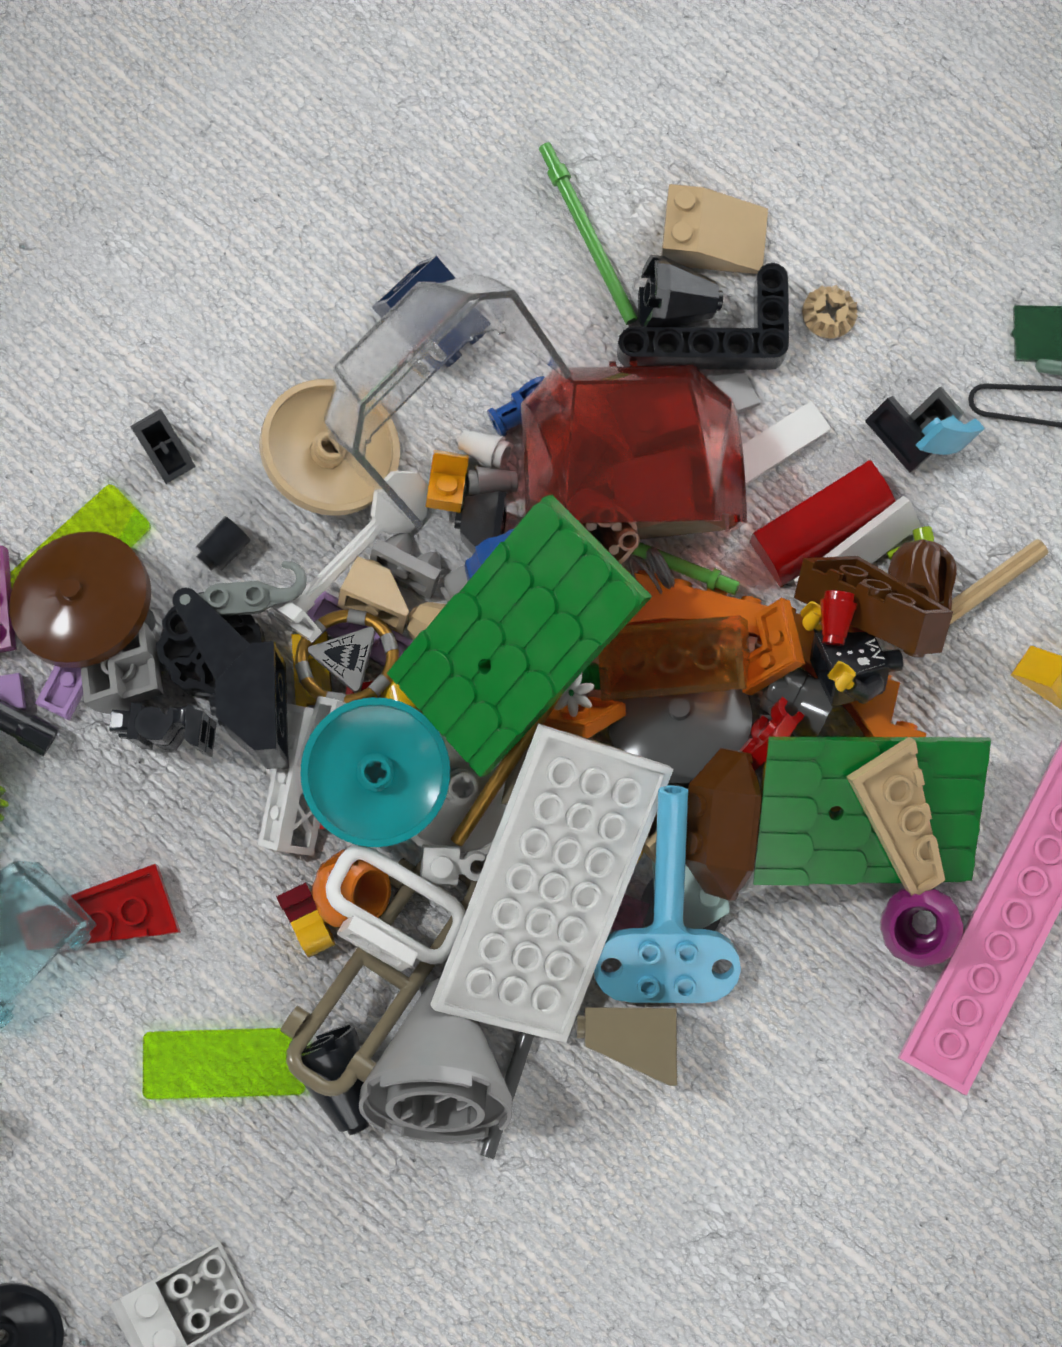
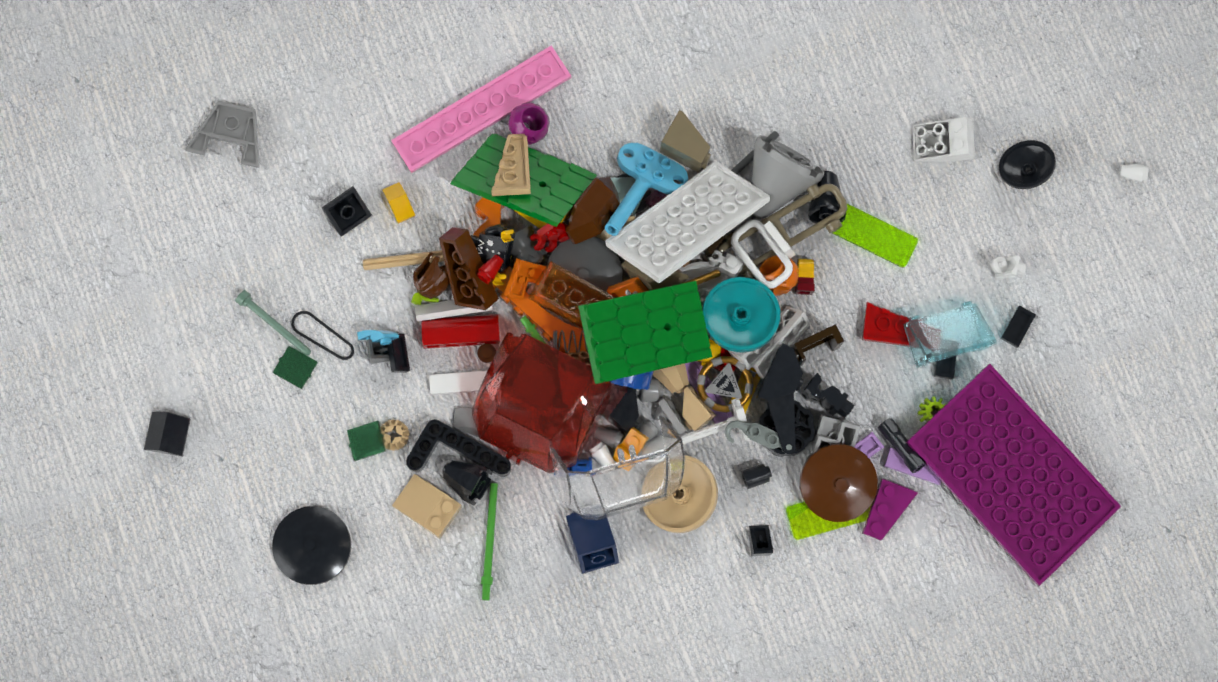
camera: 160 degrees left, 0 degrees up
(233, 808) = (831, 335): none -> dark brown panel
(436, 526) = (648, 429): none -> light grey cone
(761, 510) = (486, 353): none -> reddish brown plate
(851, 91) = (311, 545): none -> black dish
(865, 278) = (366, 441): none -> clear green piece

